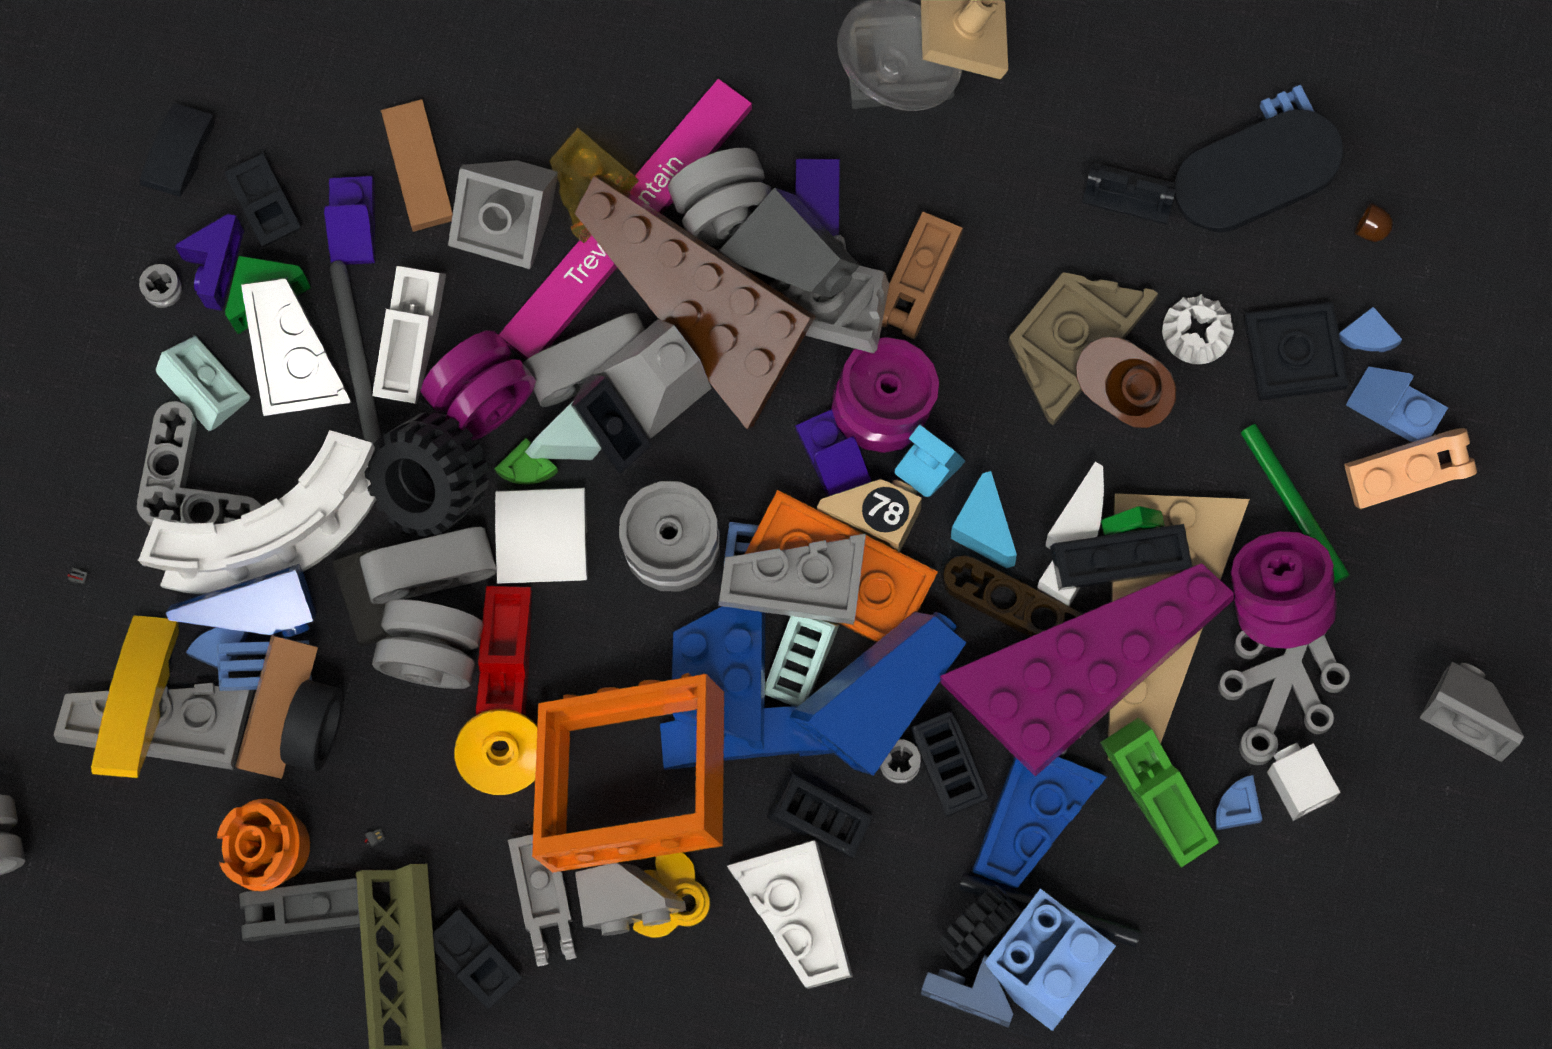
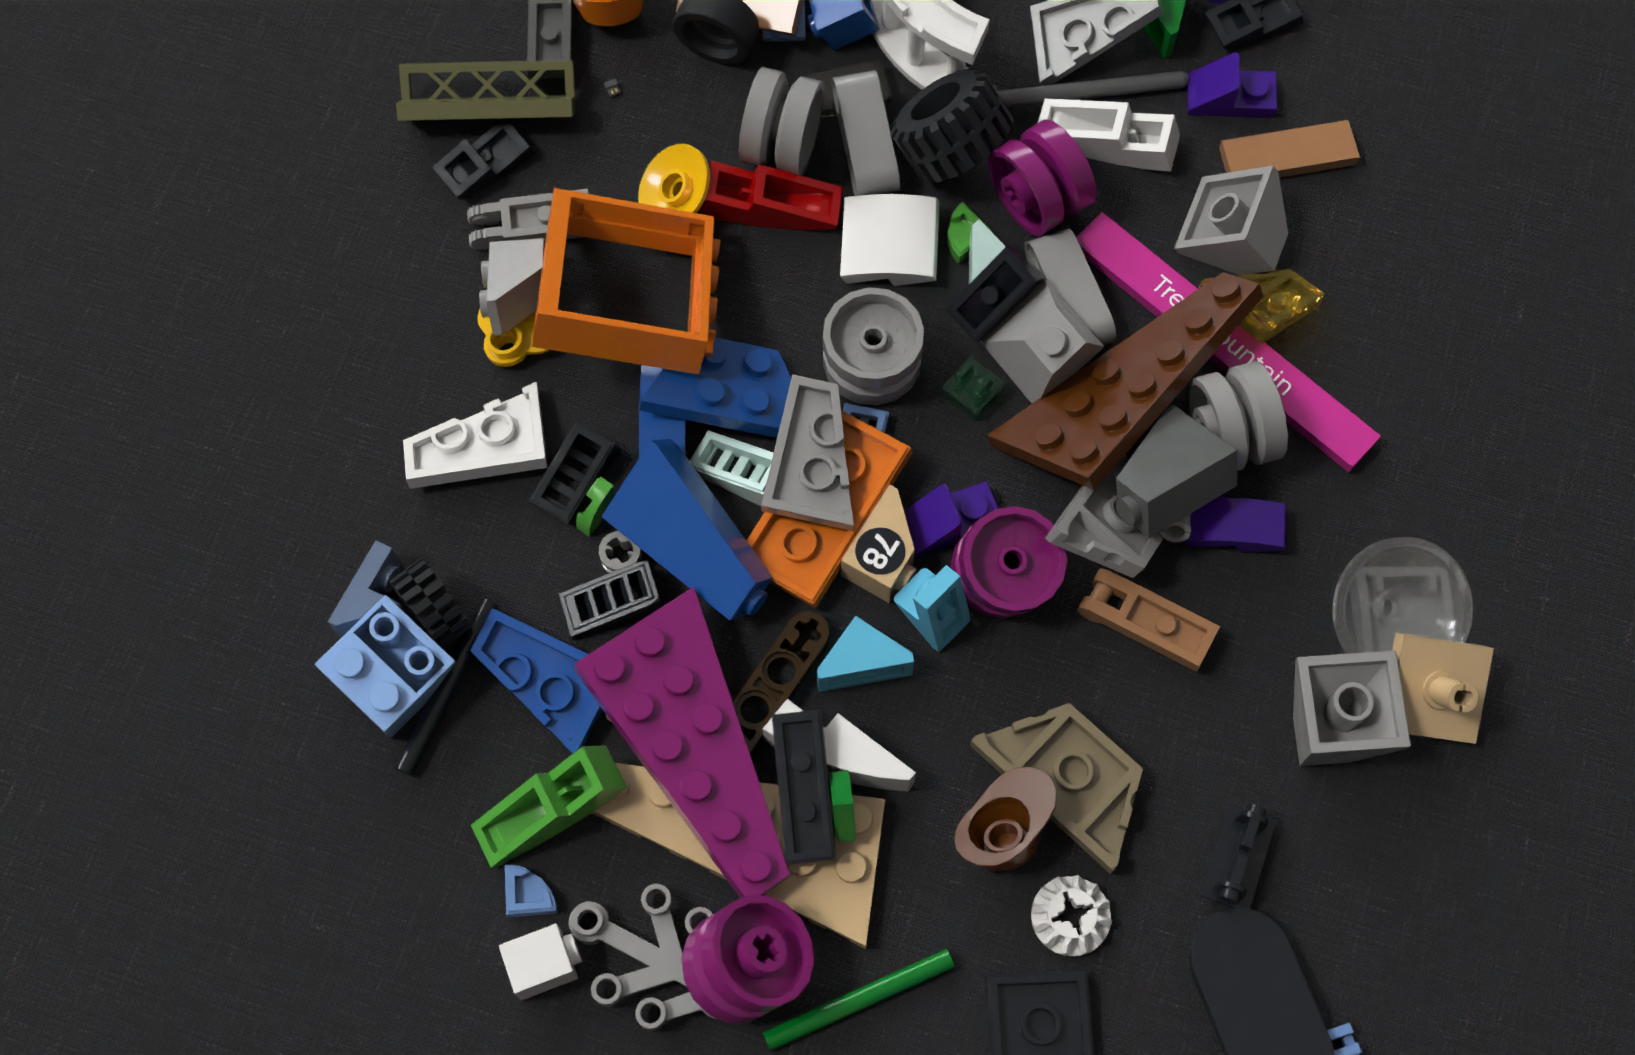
camera: 90 degrees right, 5 degrees down
(696, 446) = (972, 388): none -> clear green tile
(856, 789) = (602, 494): none -> bright green tile
(995, 99) = (1348, 707): none -> light grey slope

